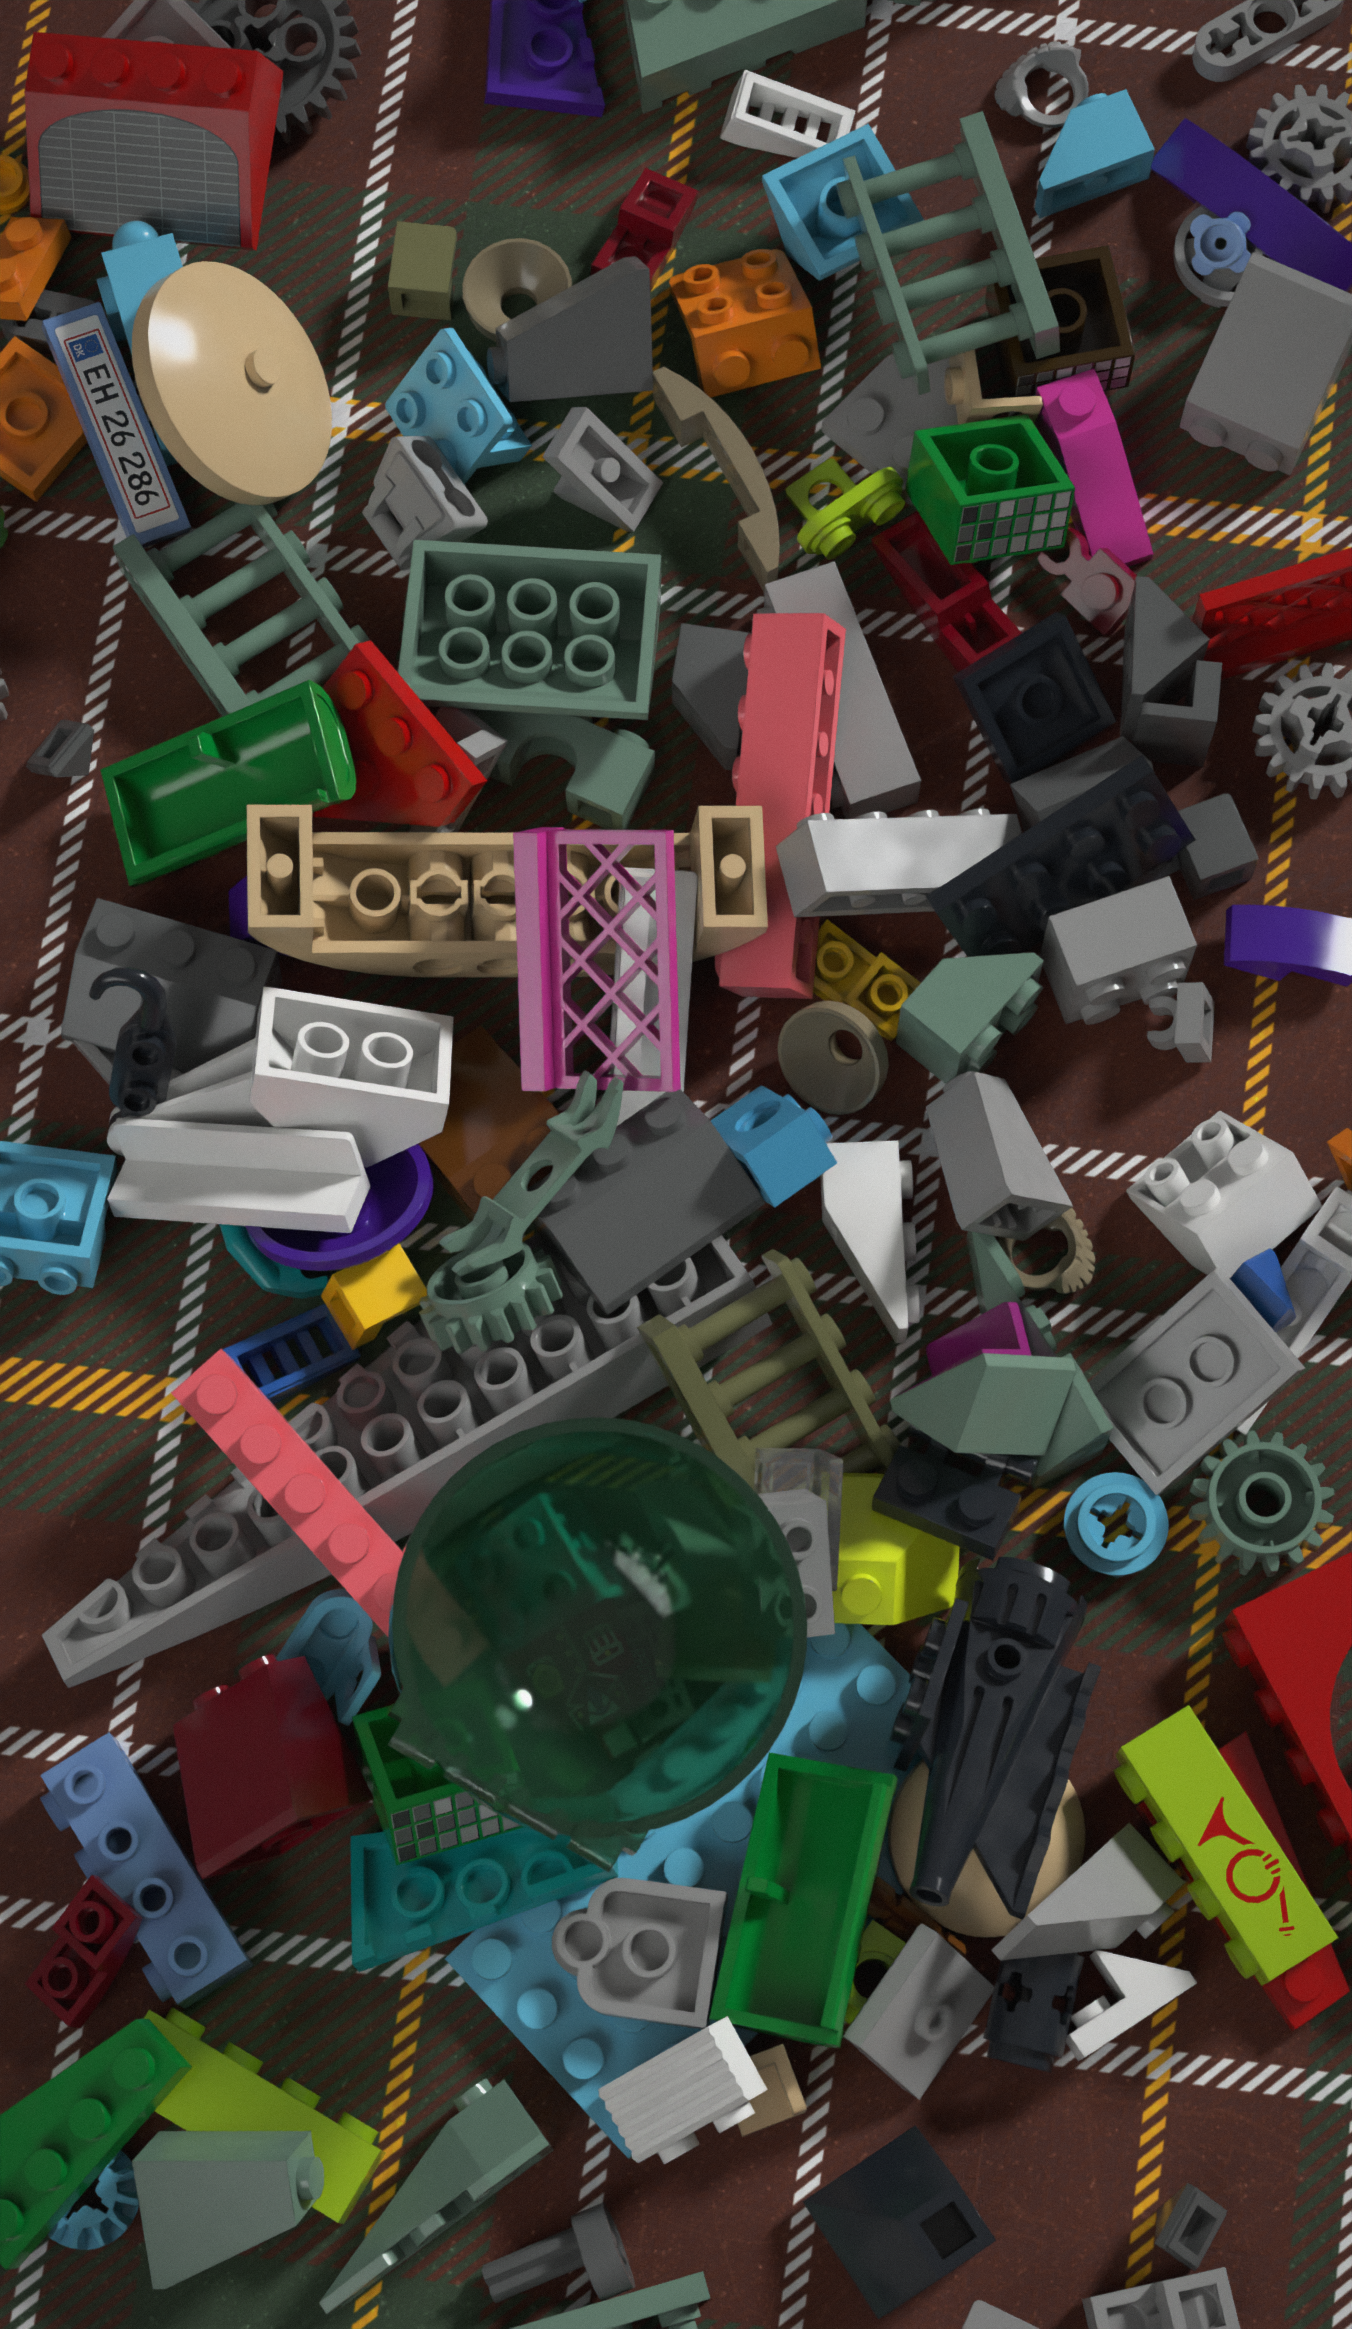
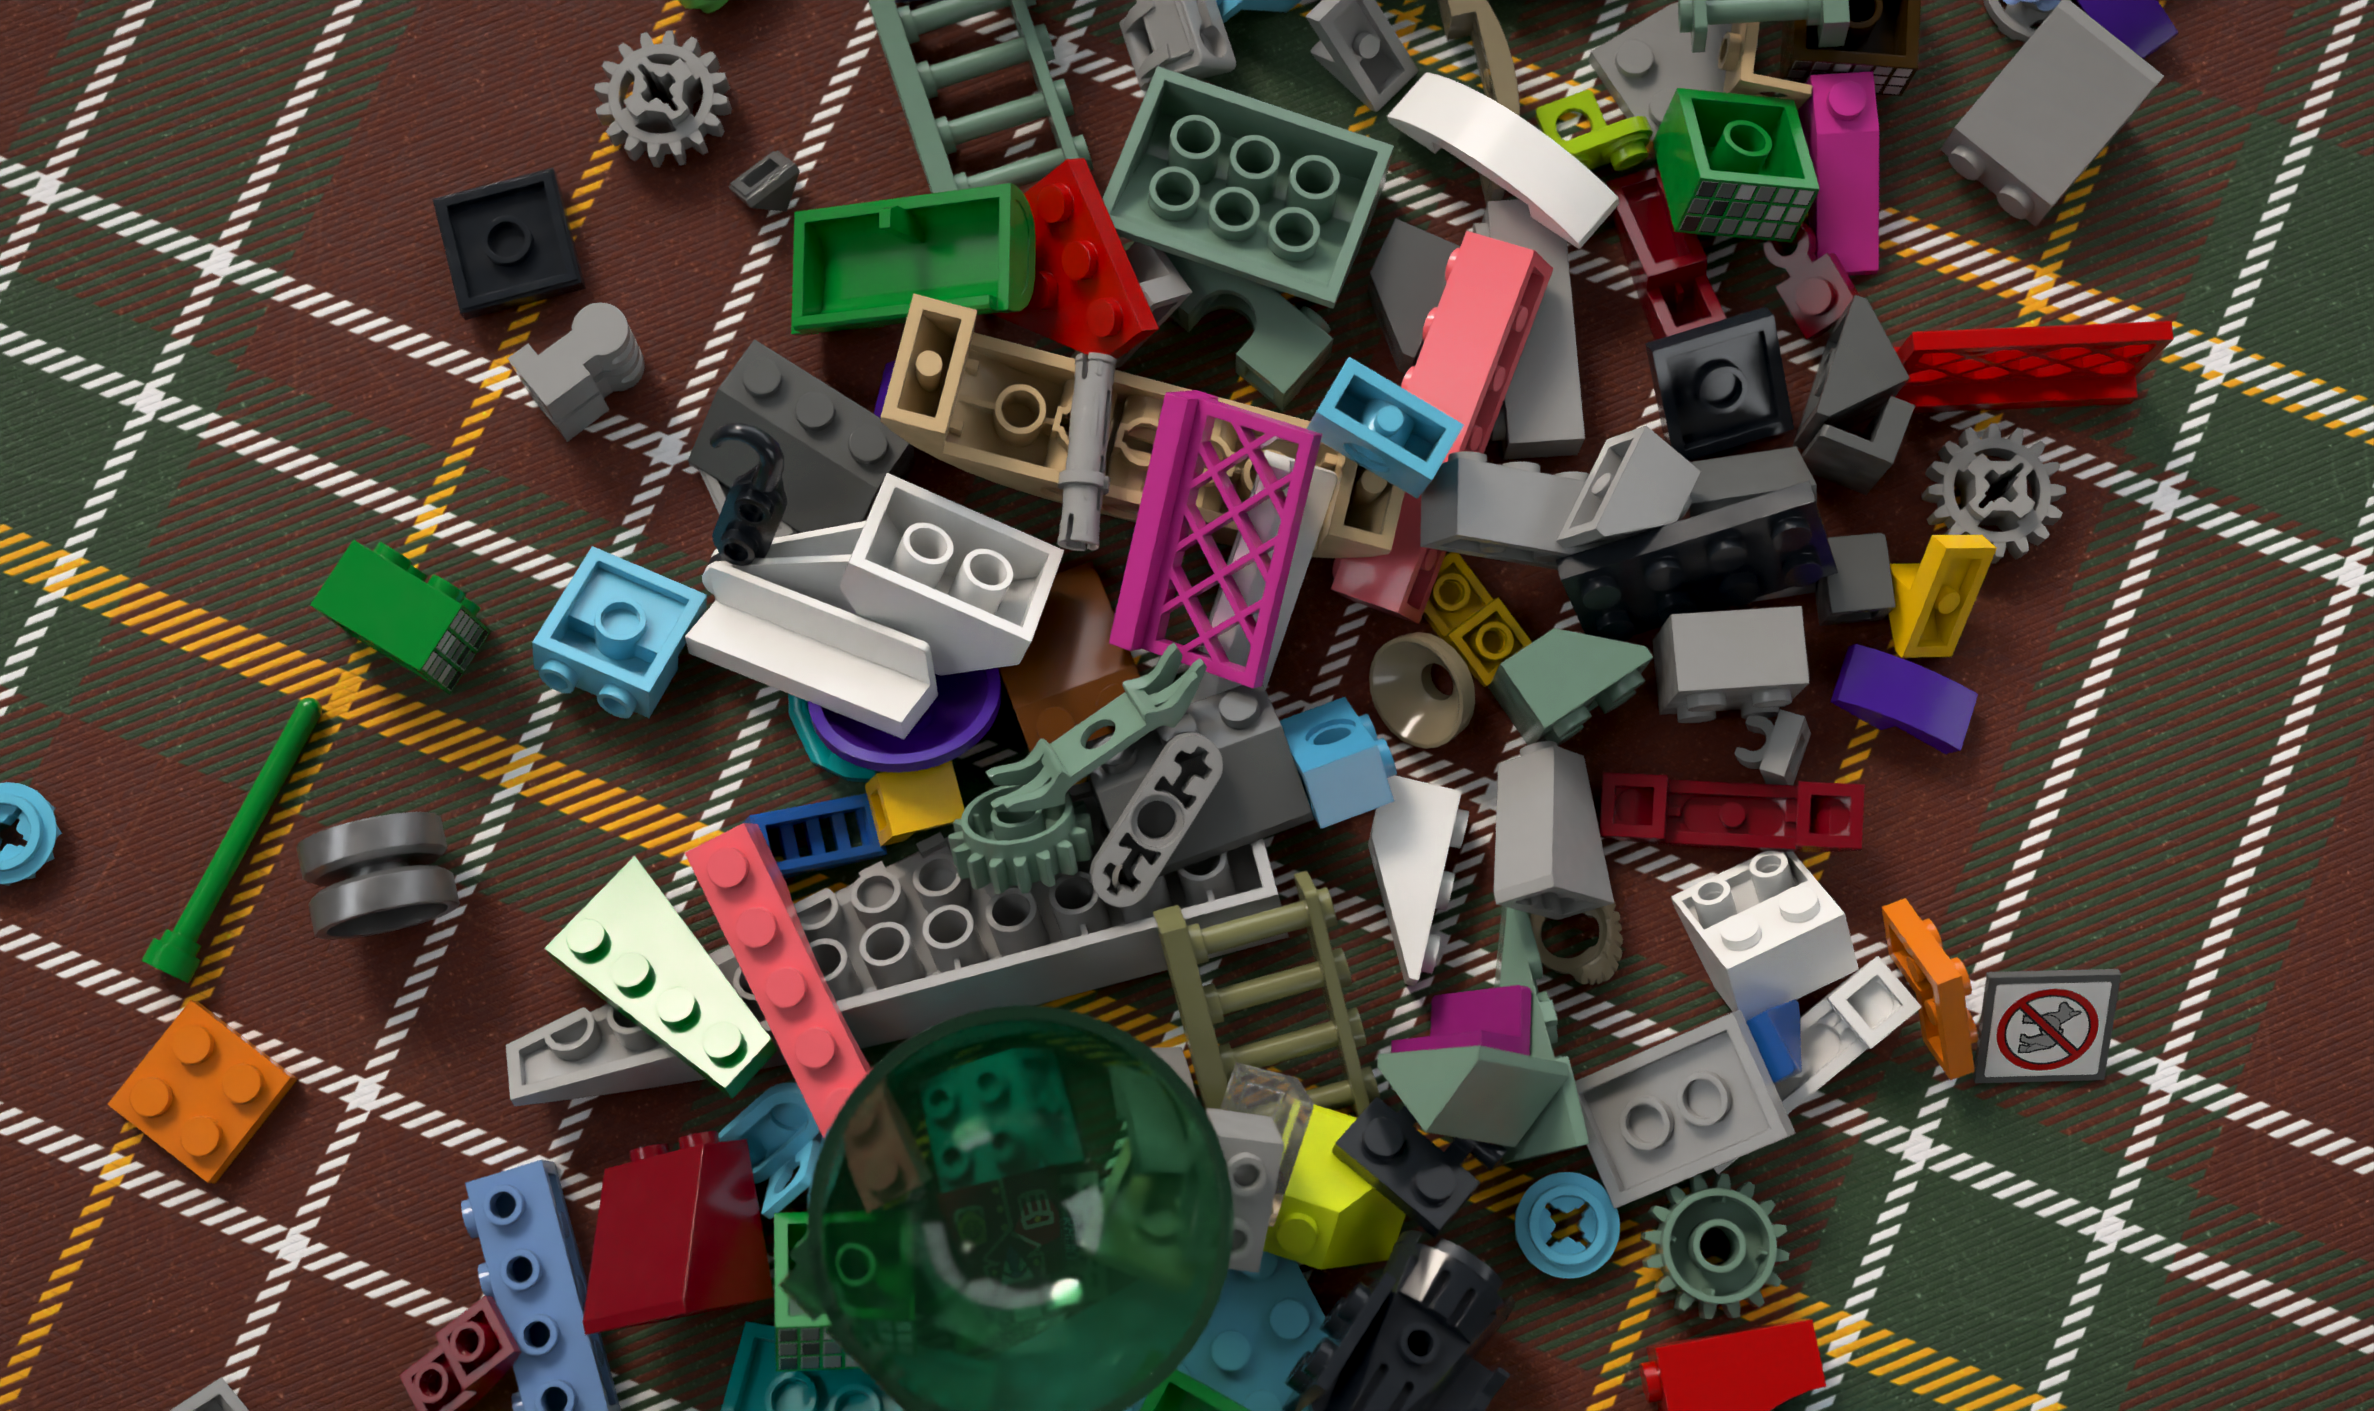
camera: 15 degrees right, 5 degrees up
(176, 1526) = (658, 975): none -> wing
(455, 937) = (1084, 474): none -> light grey pin
(615, 1187) = (1116, 853): none -> light grey beam
(730, 810) = (1384, 428): none -> medium azure brick
(770, 532) = (1508, 152): none -> white slope
(977, 811) = (1630, 490): none -> light grey slope
(1162, 1096) = (1732, 814): none -> dark red slope
(1296, 837) = (1938, 594): none -> yellow slope

